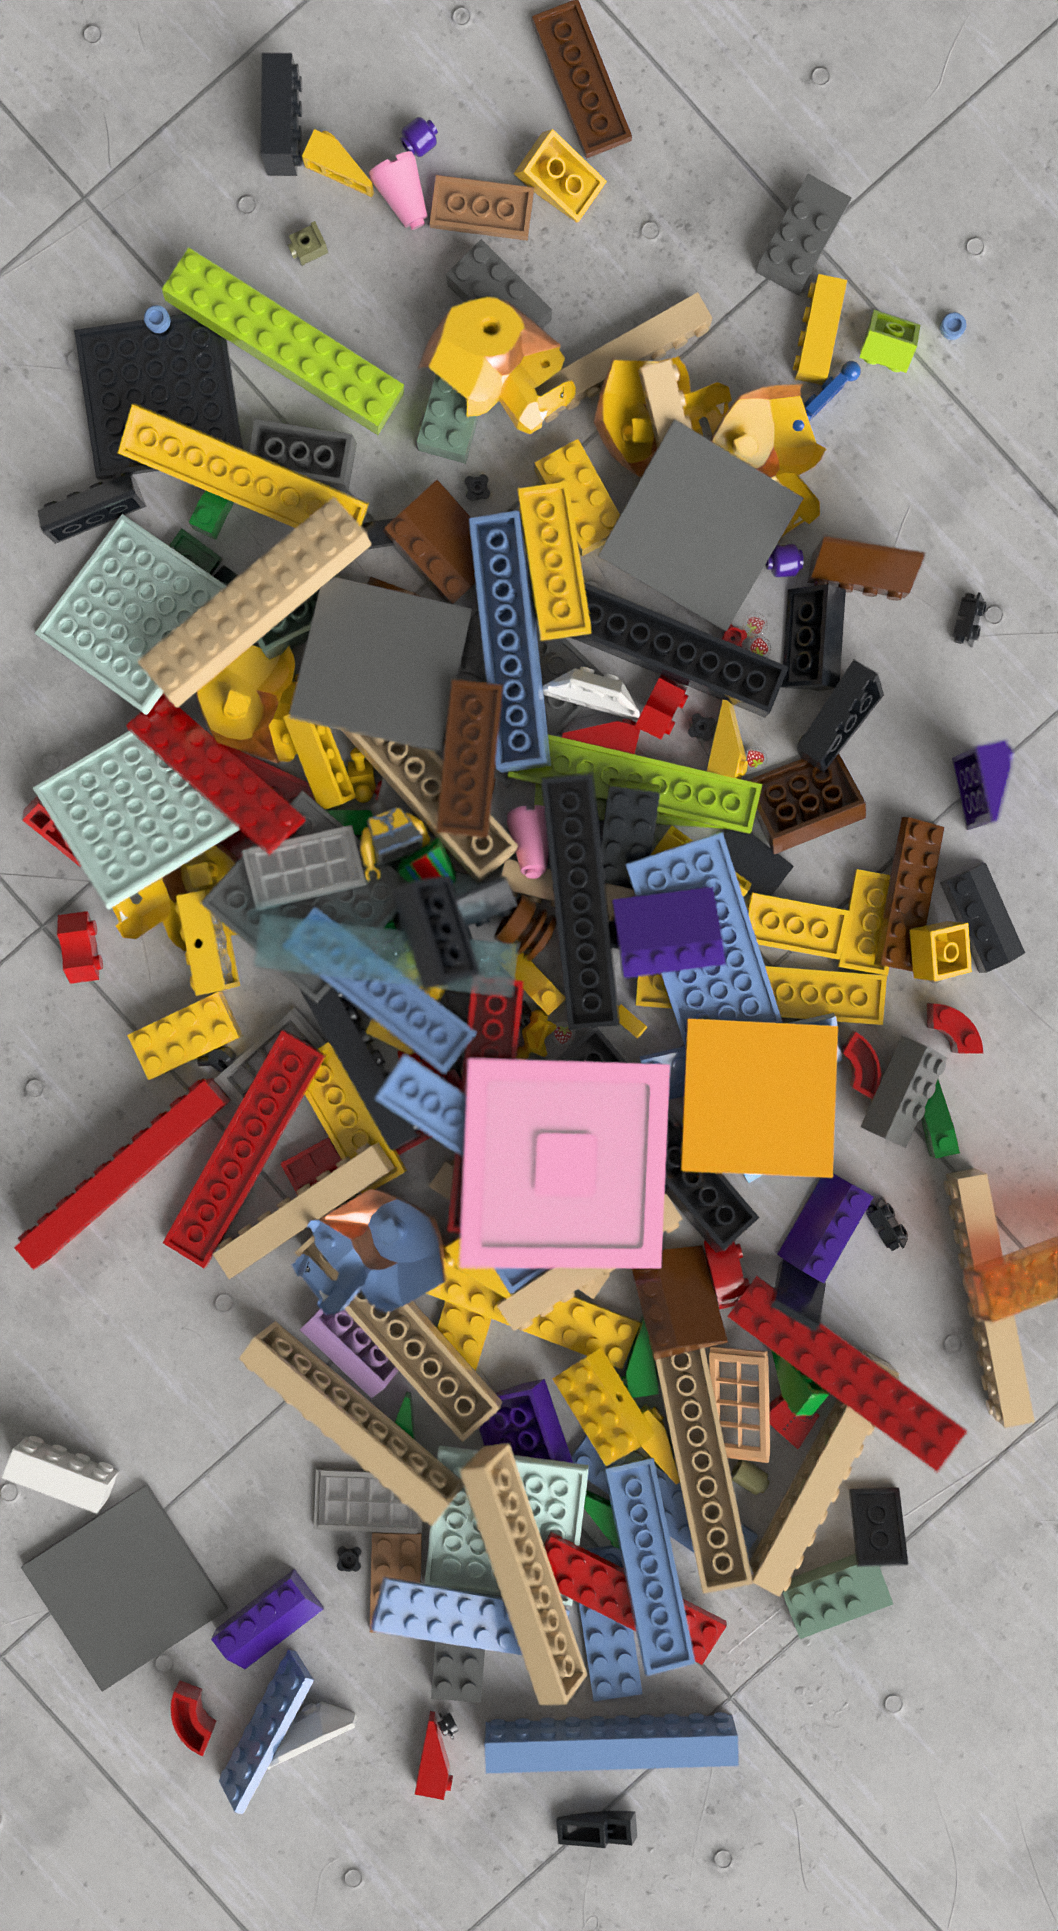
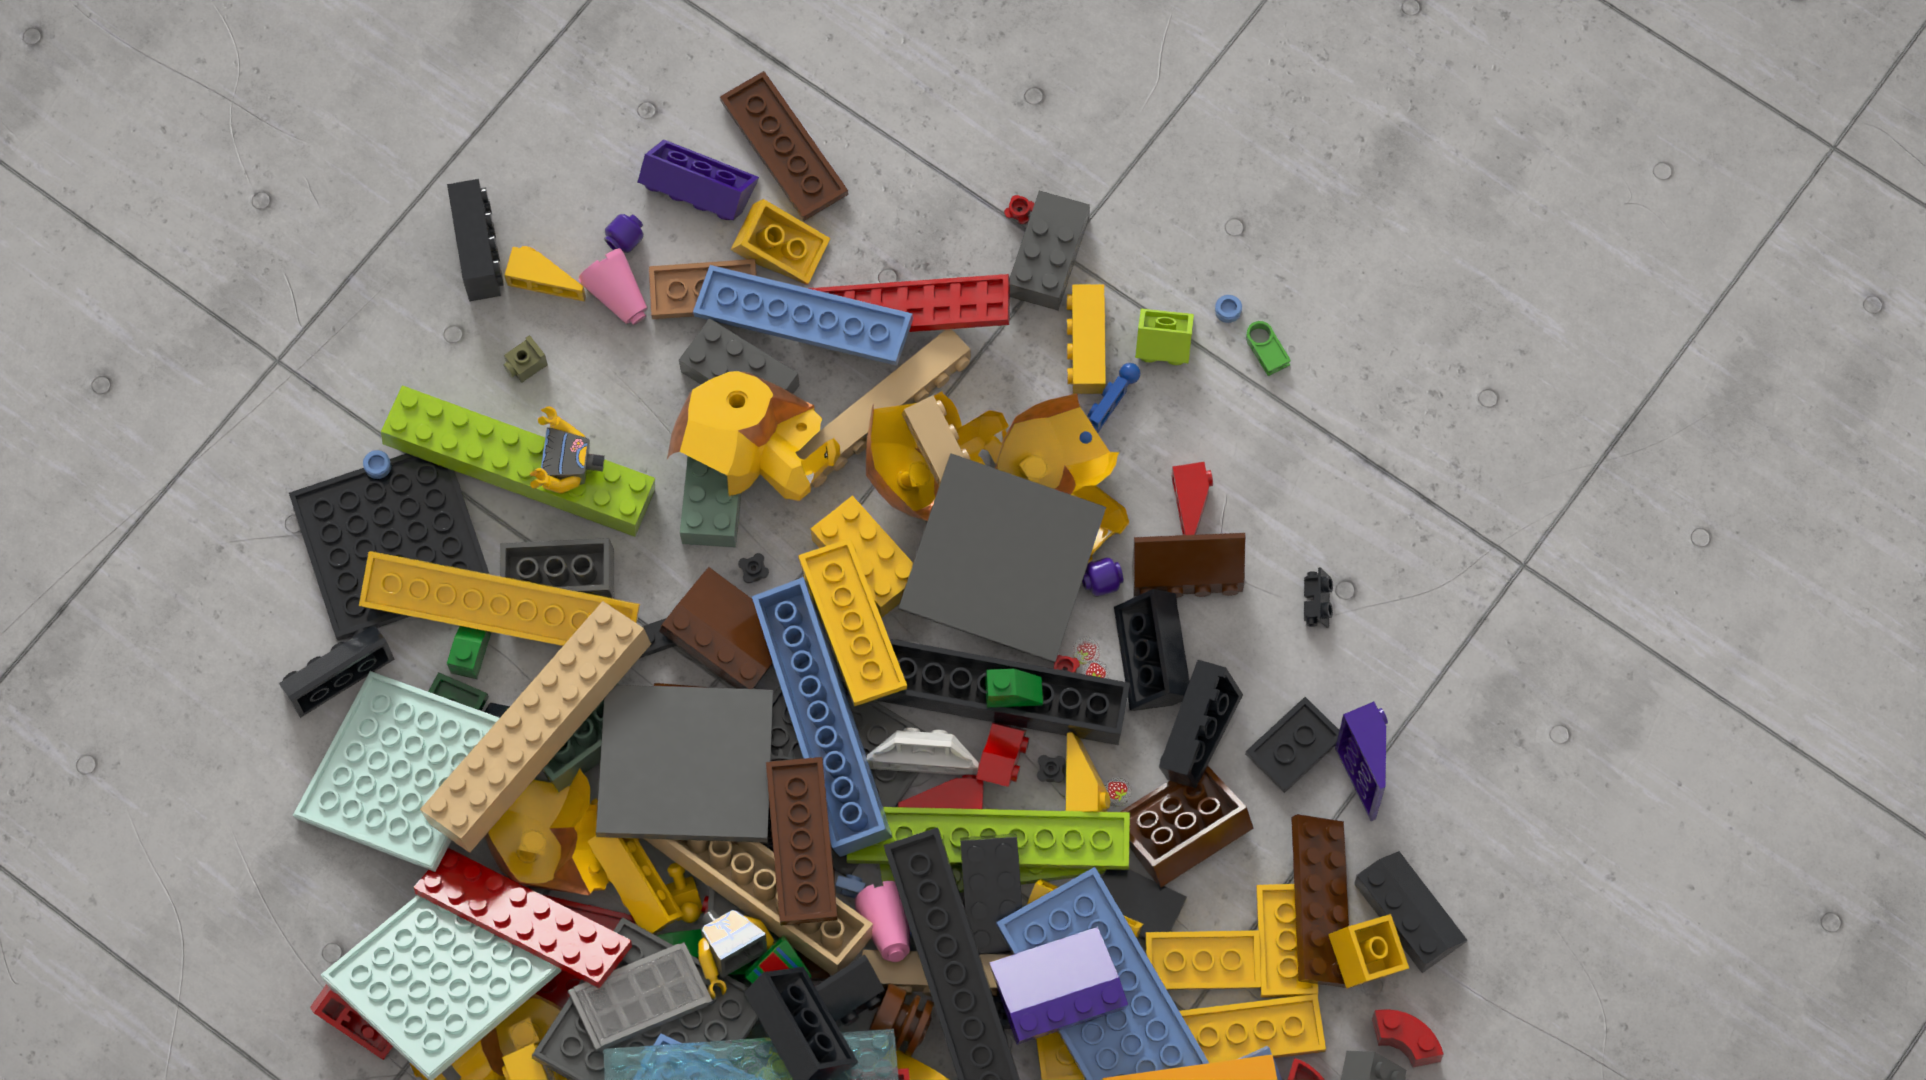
camera: 15 degrees left, 20 degrees down
(324, 348) = (564, 456): none -> torso
(495, 96) = (697, 180): none -> dark purple slope
(507, 798) = (849, 885): none -> light blue plate
(567, 253) = (803, 315): none -> medium blue plate
(660, 264) = (939, 302): none -> red plate
(684, 653) = (1013, 688): none -> green slope
(785, 181) = (1019, 202): none -> red plate
(881, 493) = (1191, 492): none -> red slope
(918, 749) = (1294, 744): none -> black plate
(980, 378) = (1269, 353): none -> bright green piece

